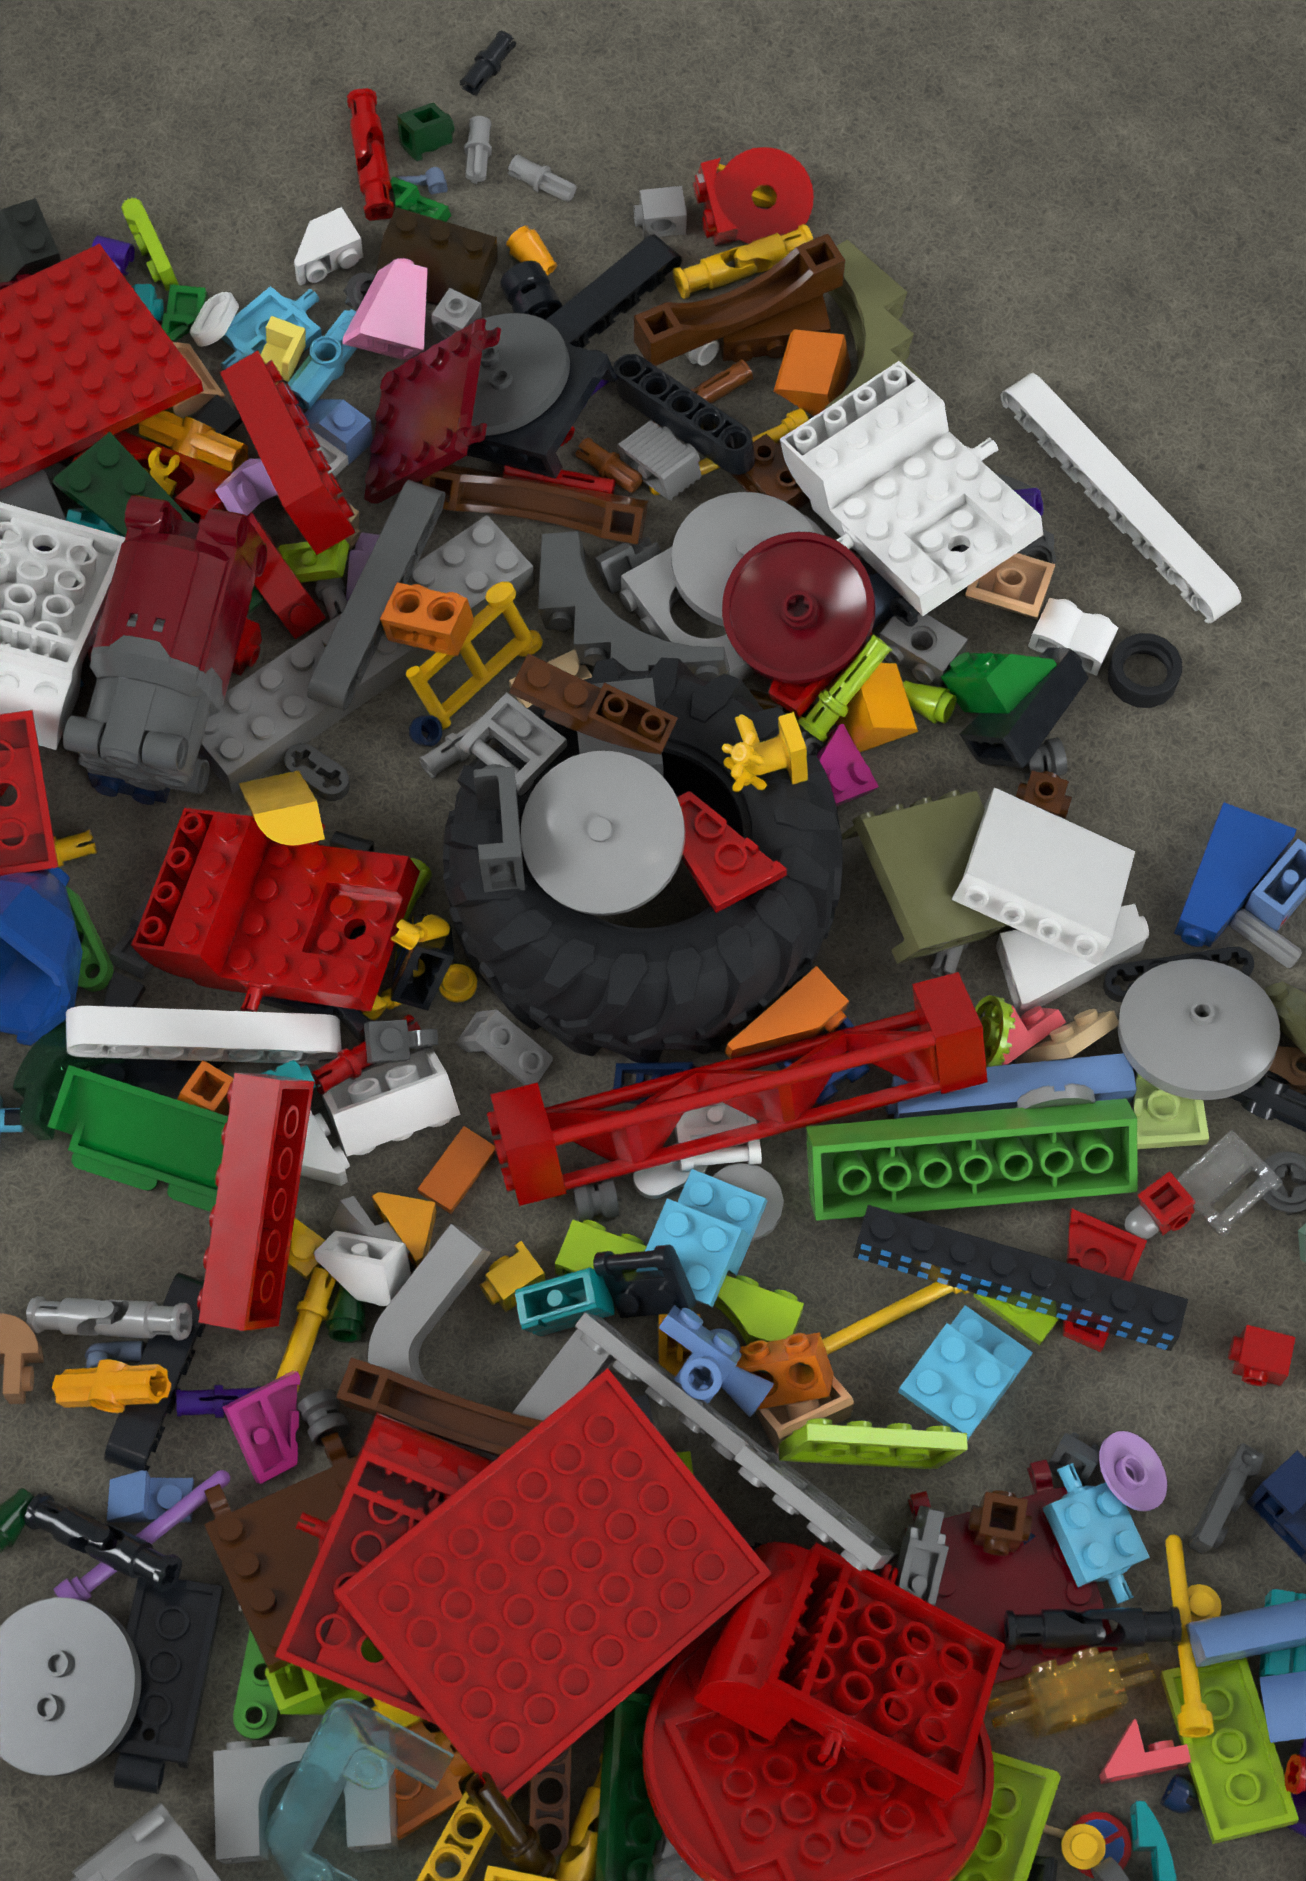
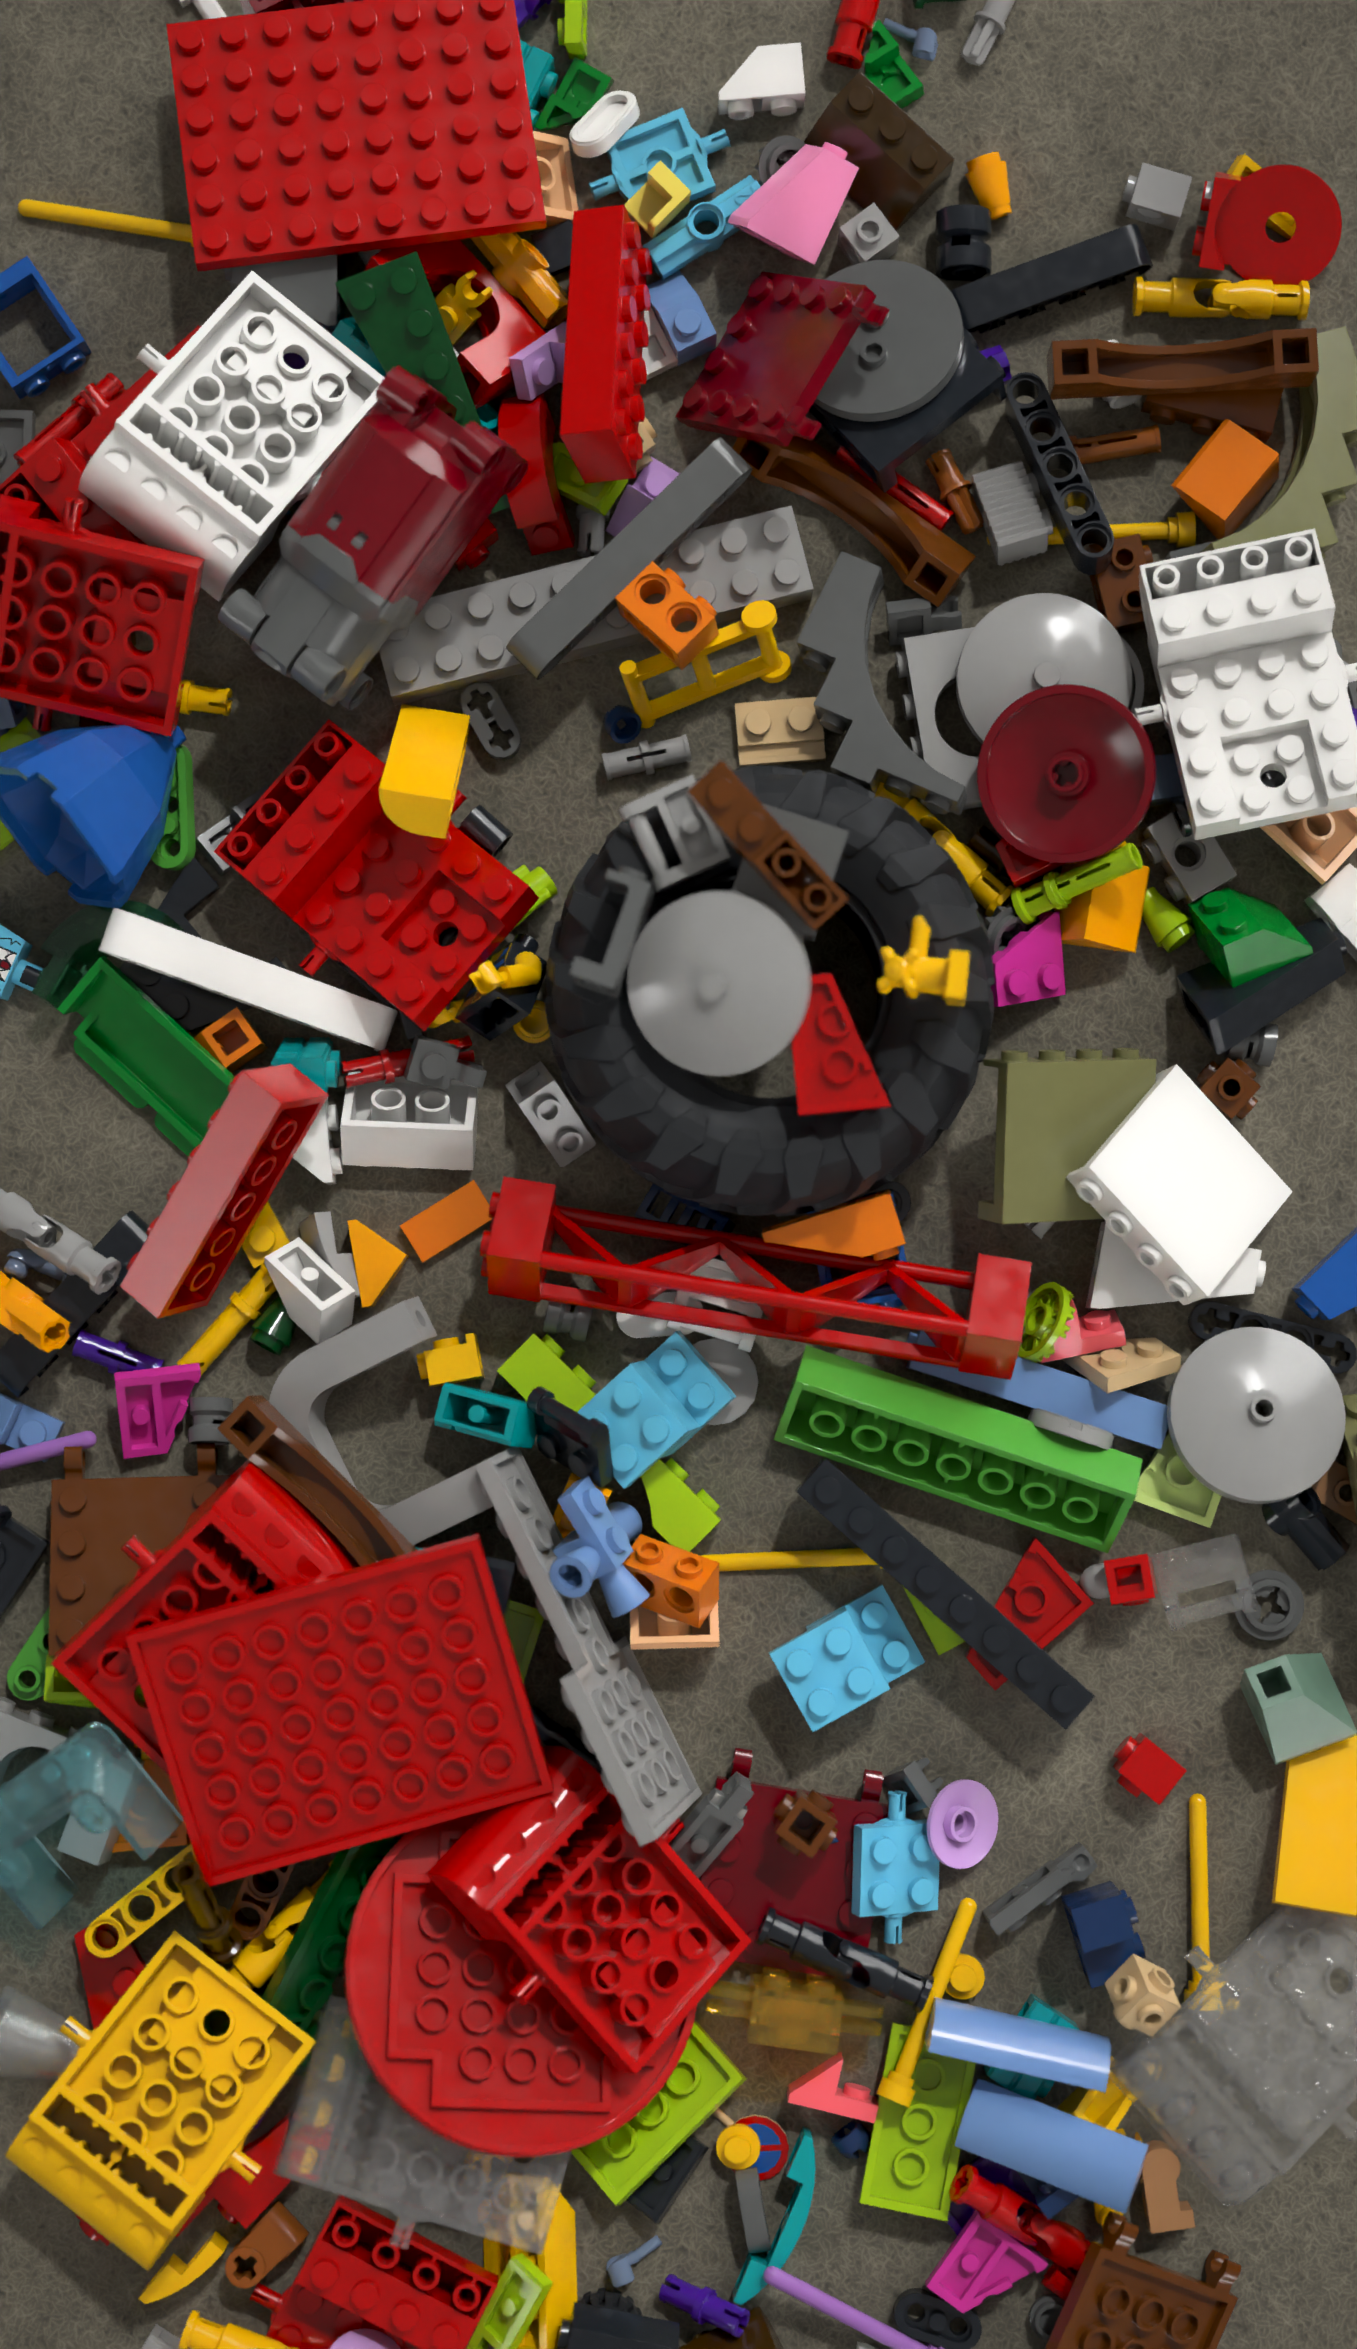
camera: 25 degrees right, 20 degrees up
(541, 178) = (1044, 92): light grey axle -> none
(872, 1446) = (728, 1701): lime plate -> none

